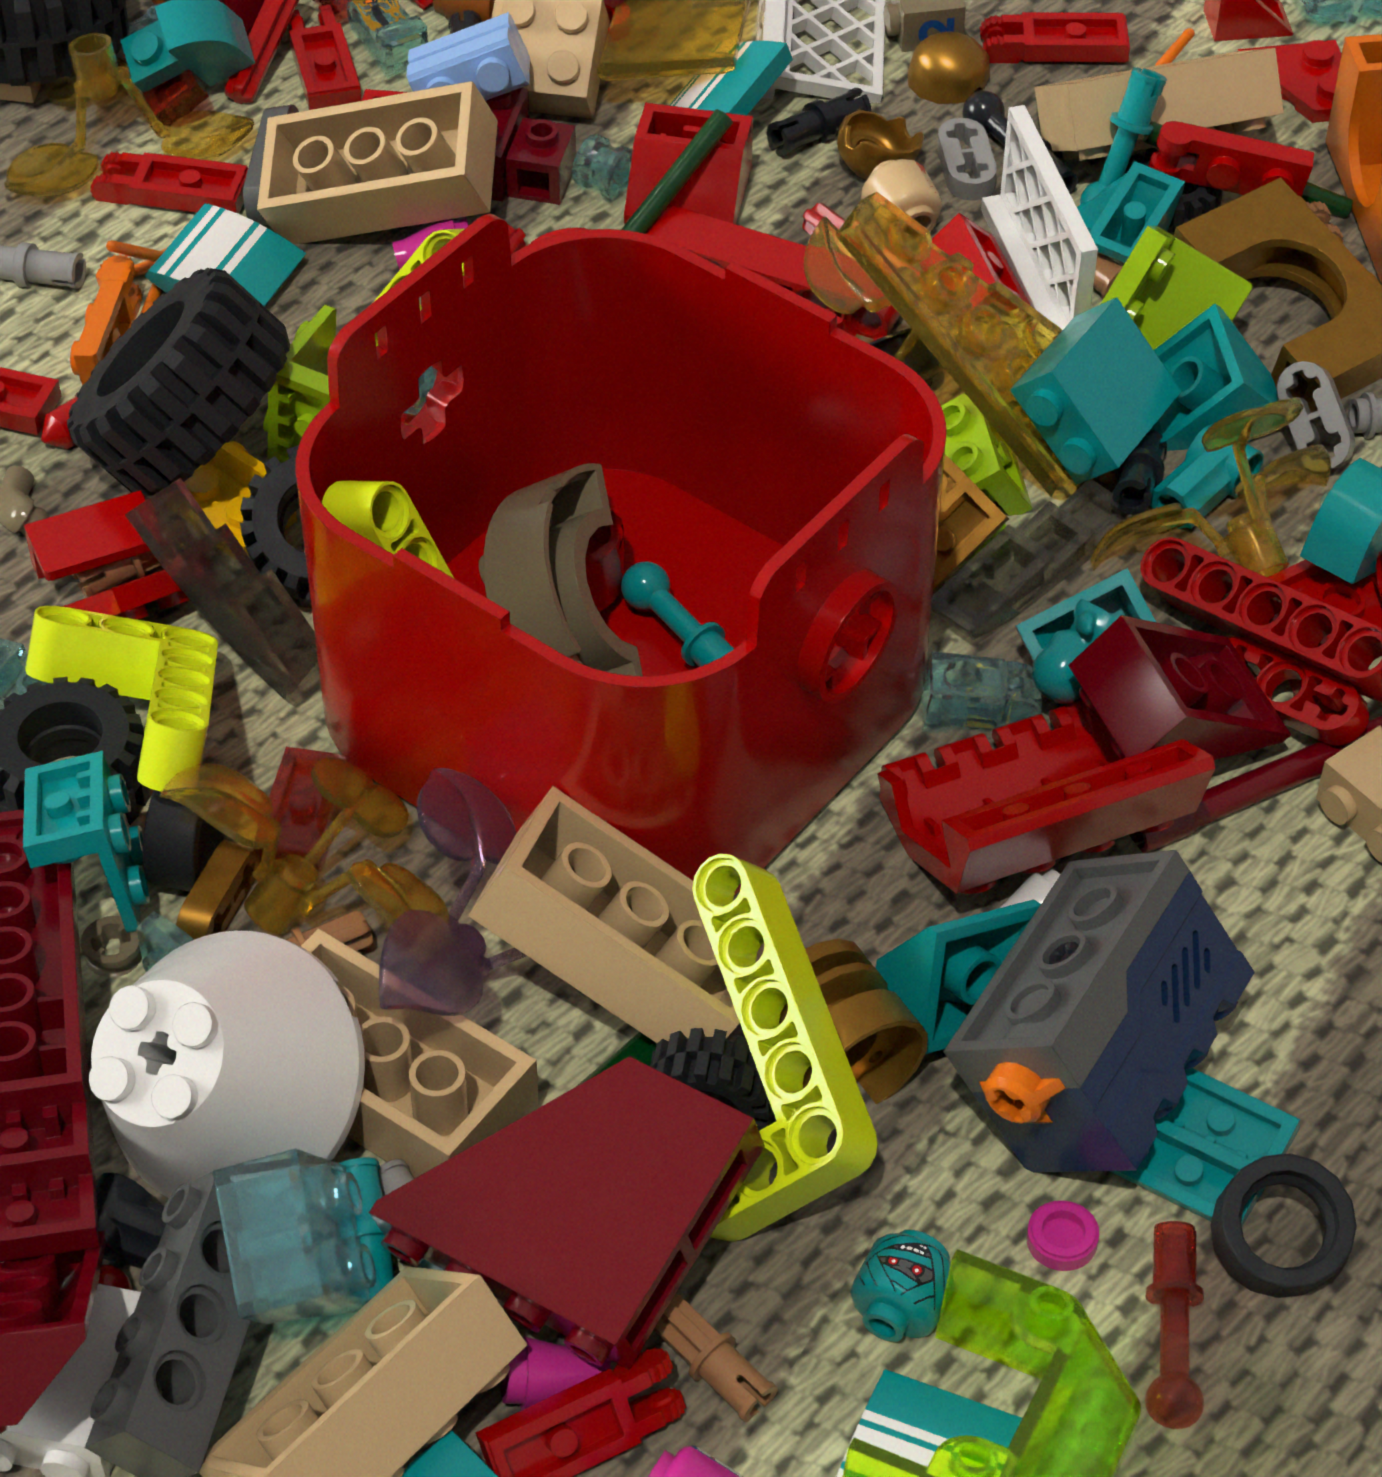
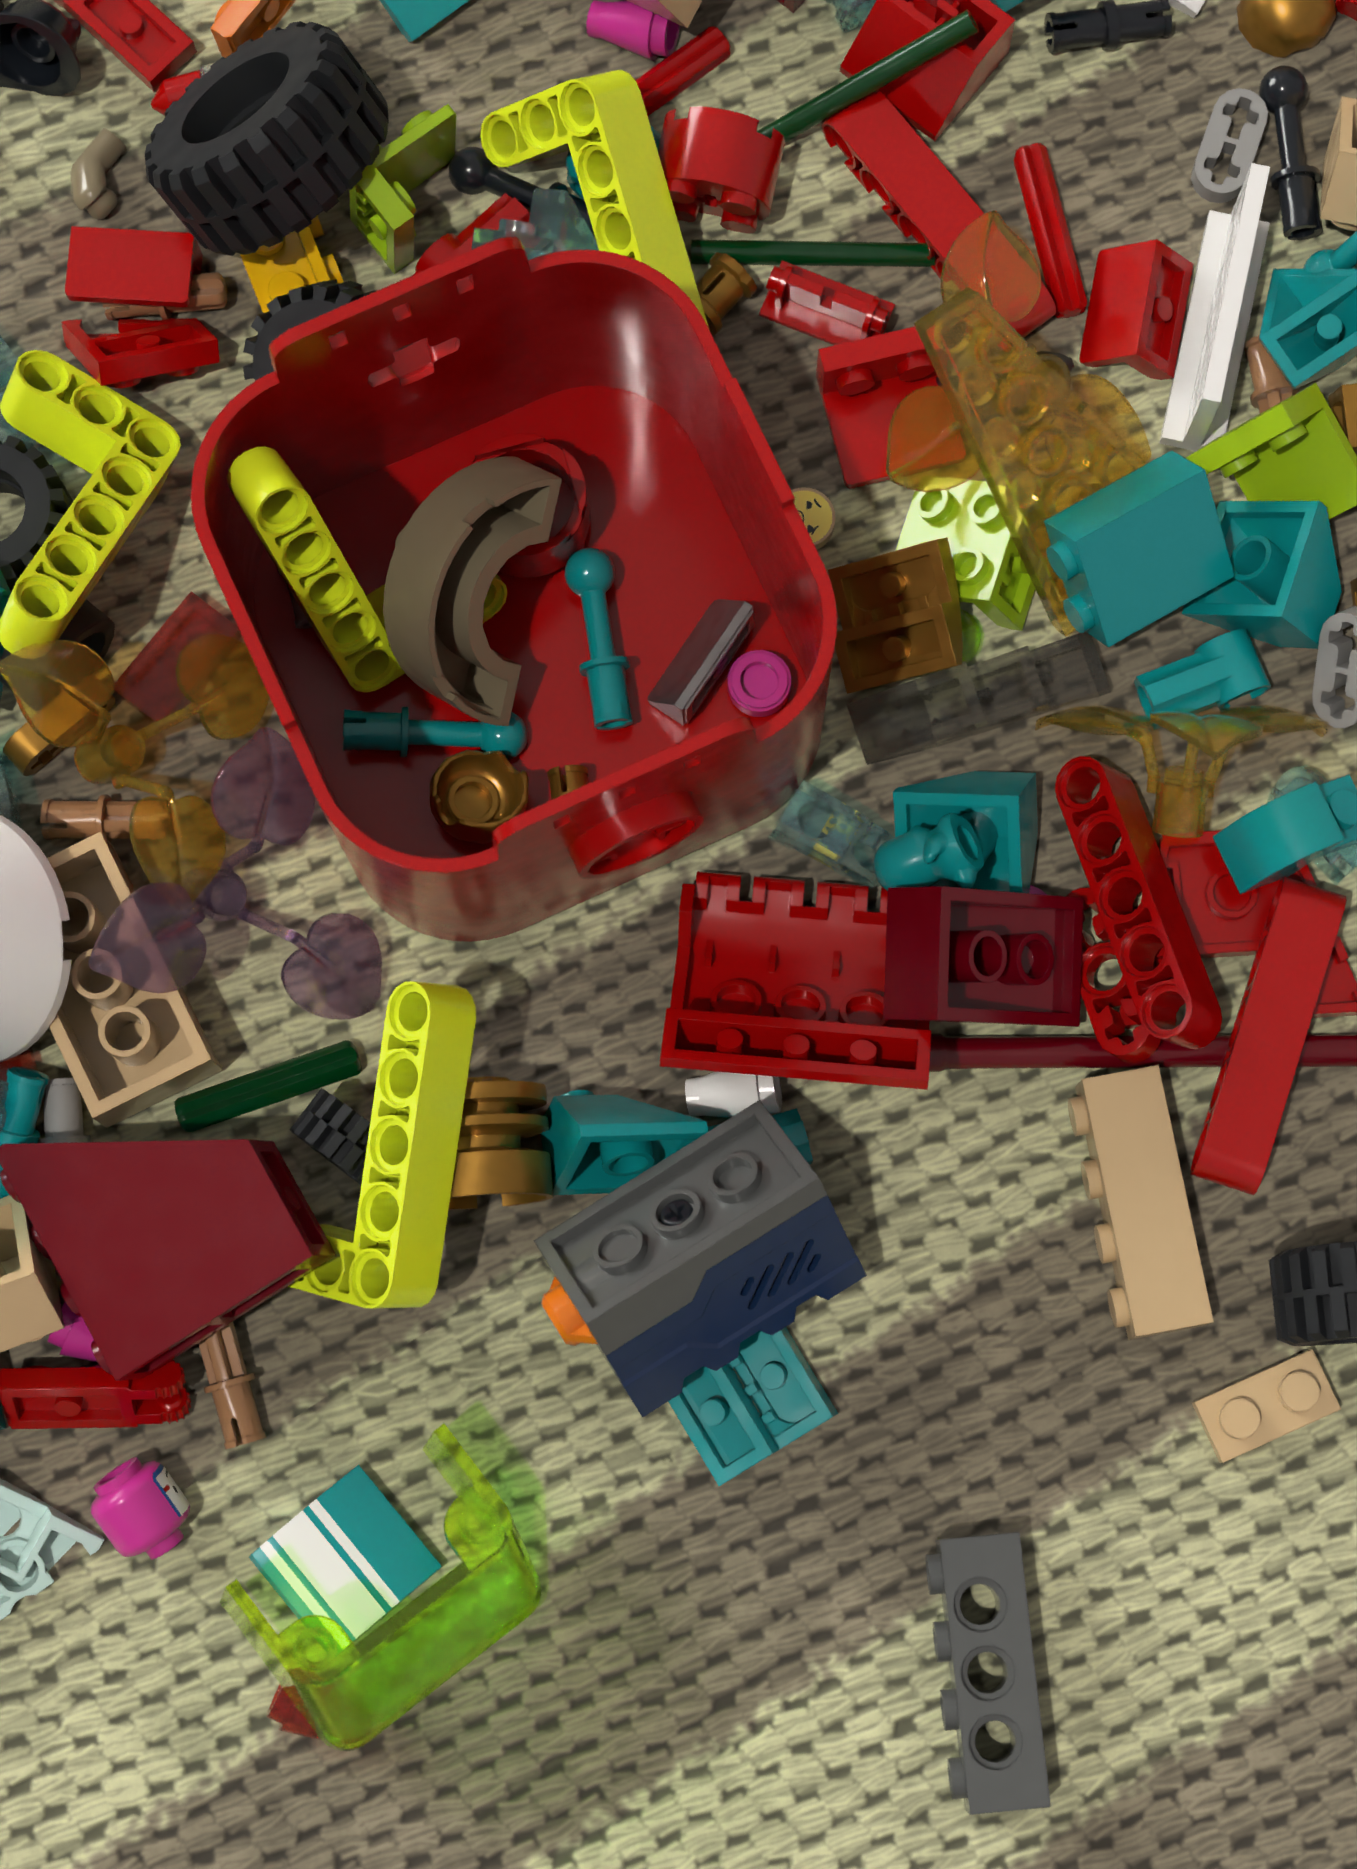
camera: 30 degrees right, 30 degrees up
(228, 590) = (196, 344): clear smoke slope -> none
(607, 921) = (323, 954): tan brick -> none
(870, 139) = (1133, 75): pearl gold hair -> none
(902, 1285) = (414, 1399): teal head -> none
(908, 188) = (1121, 181): tan head -> none
(1062, 1235) = (576, 1414): dark pink tile -> none
(1140, 474) = (1136, 654): black pin -> none
(1173, 1396) = (577, 1603): clear red pin -> none
(1314, 1182) = (728, 1559): black tyre -> none

